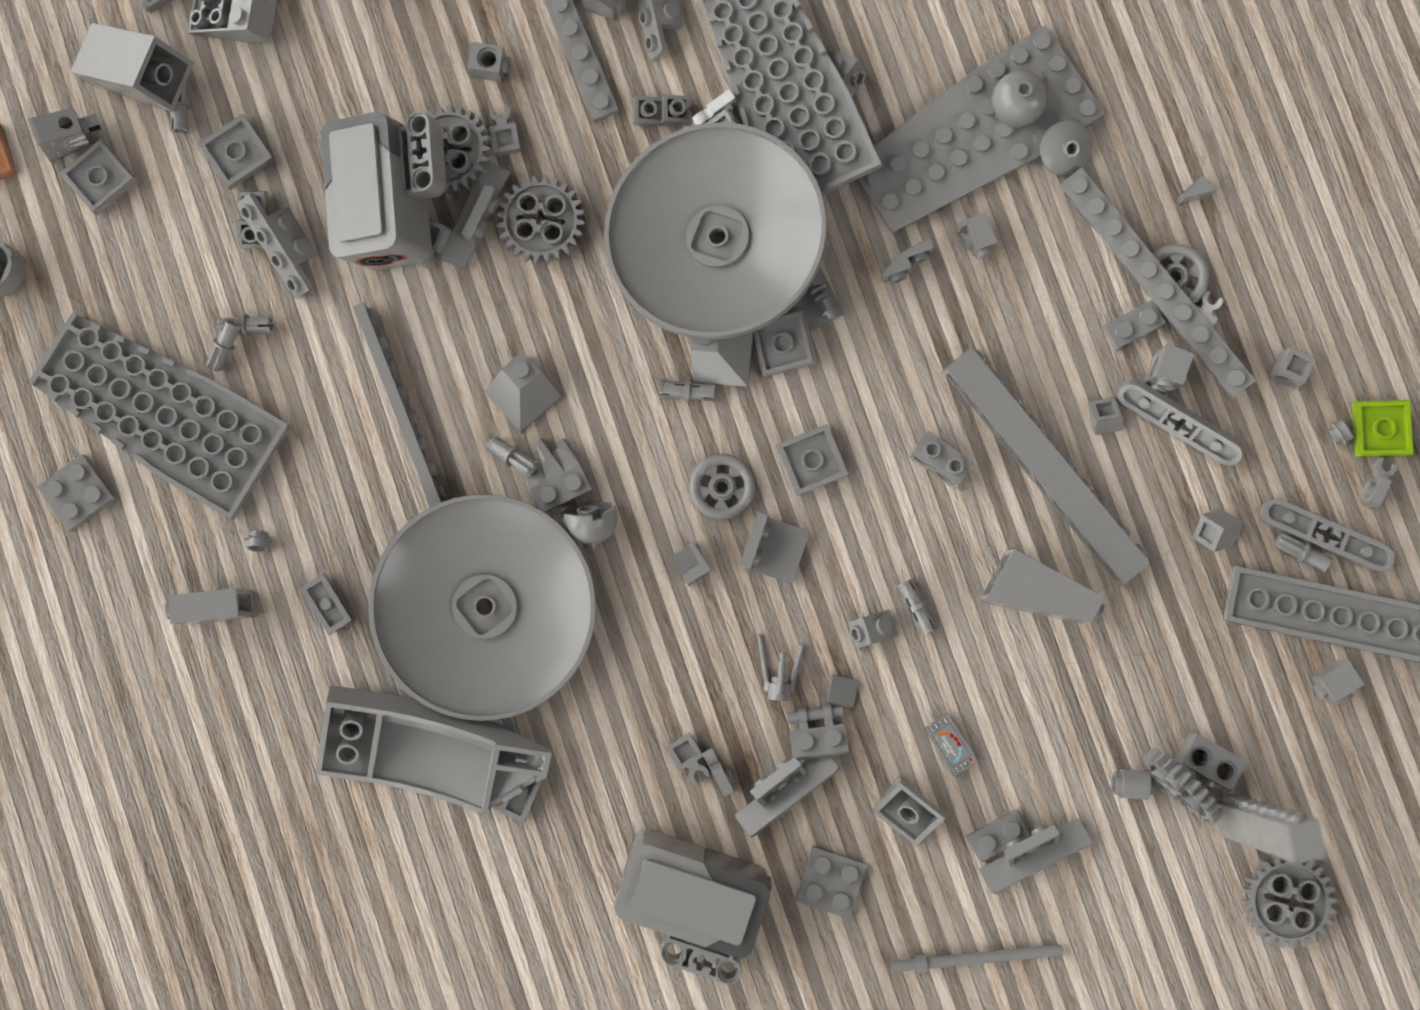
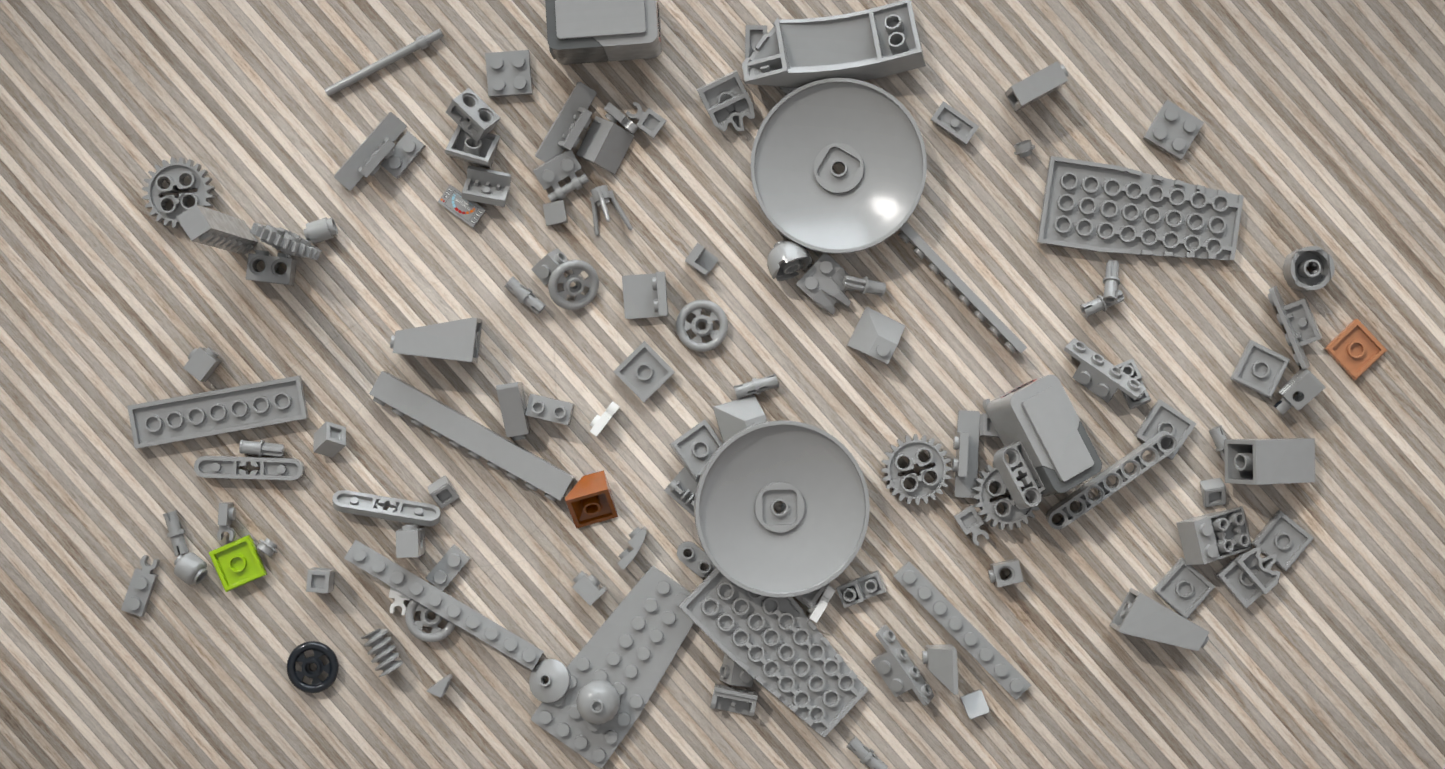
camera: 150 degrees right, 5 degrees up
(30, 210) = (1298, 323): none -> light grey bracket
(213, 61) = (1213, 492): none -> light grey slope
(308, 113) = (1122, 479): none -> light grey beam
(583, 739) = (727, 101): none -> light grey plate
(749, 748) = (605, 144): none -> light grey slope
(838, 219) = (696, 559): none -> light grey plate
(853, 575) = (580, 300): none -> light grey plate
(859, 43) = (734, 700): none -> light grey hinge
(887, 421) = (600, 422): none -> white plate
(894, 849) = (472, 114): none -> light grey brick
(912, 755) = (486, 186): none -> light grey bracket
(934, 335) = (591, 500): none -> dark orange slope
(984, 476) = (513, 410): none -> light grey slope
(1248, 257) = (382, 651): none -> light grey piece
(1340, 250) = (317, 684): none -> black plate

